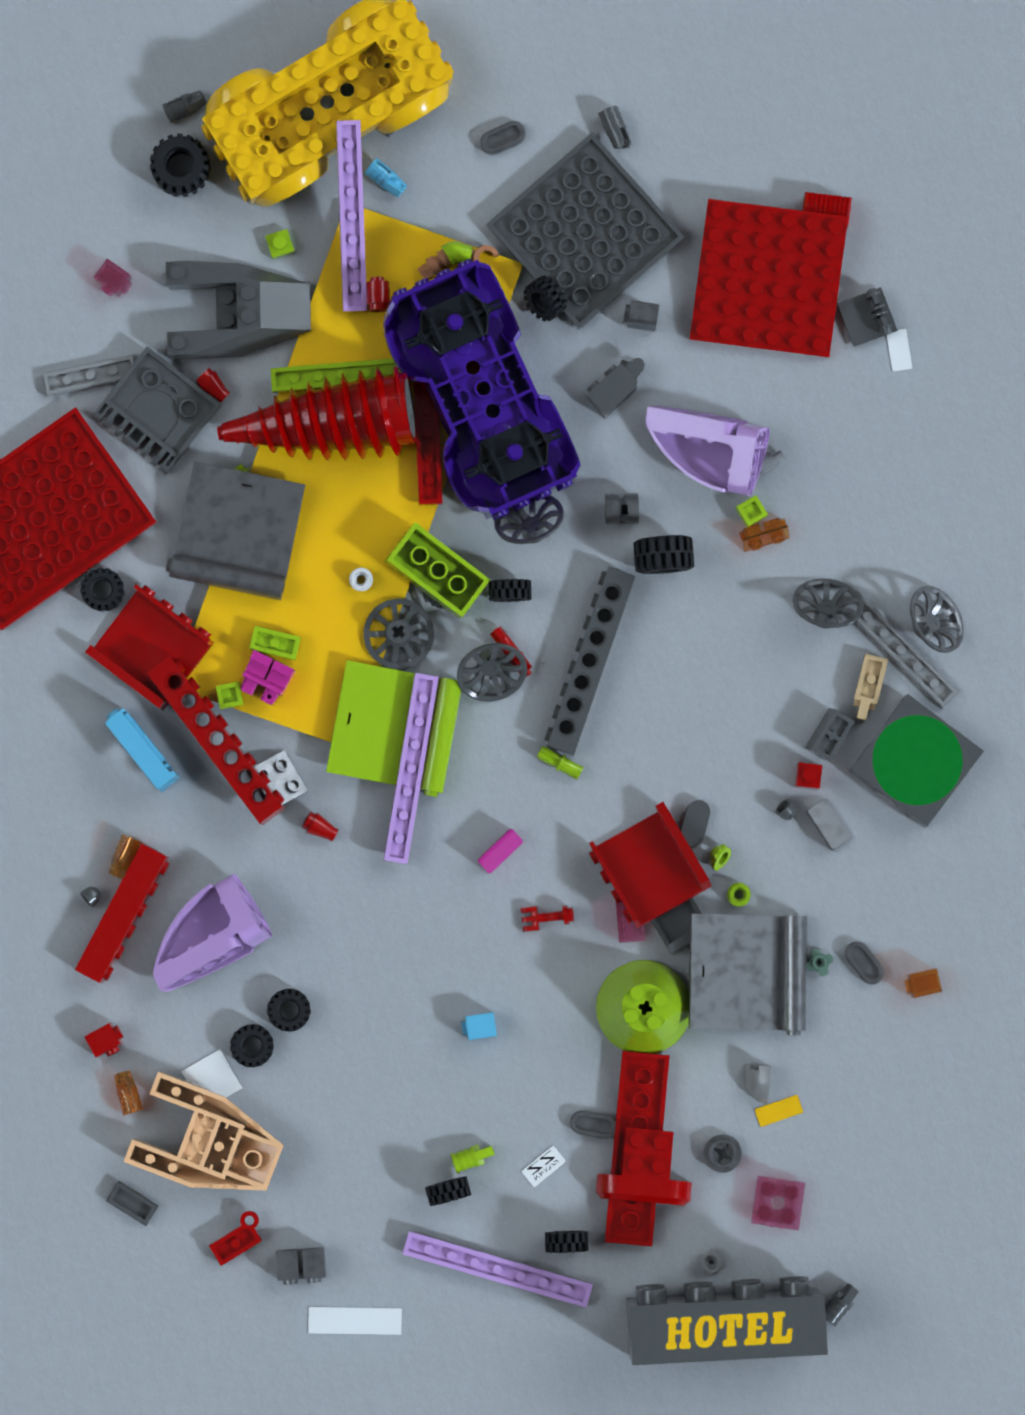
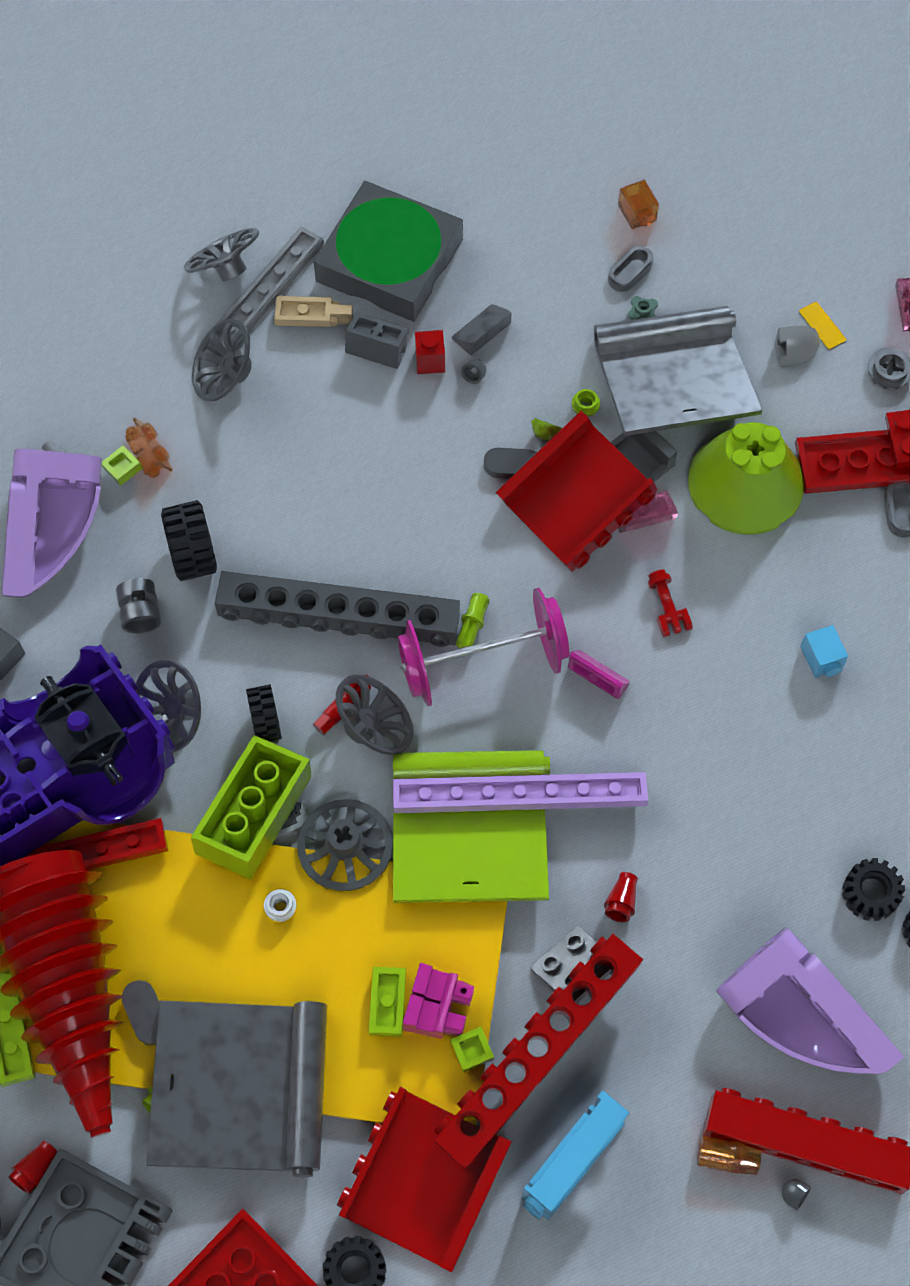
camera: 100 degrees left, 20 degrees down
(304, 472) = (142, 1009): none -> flat silver tile
(522, 708) = (550, 629): none -> dark pink axle

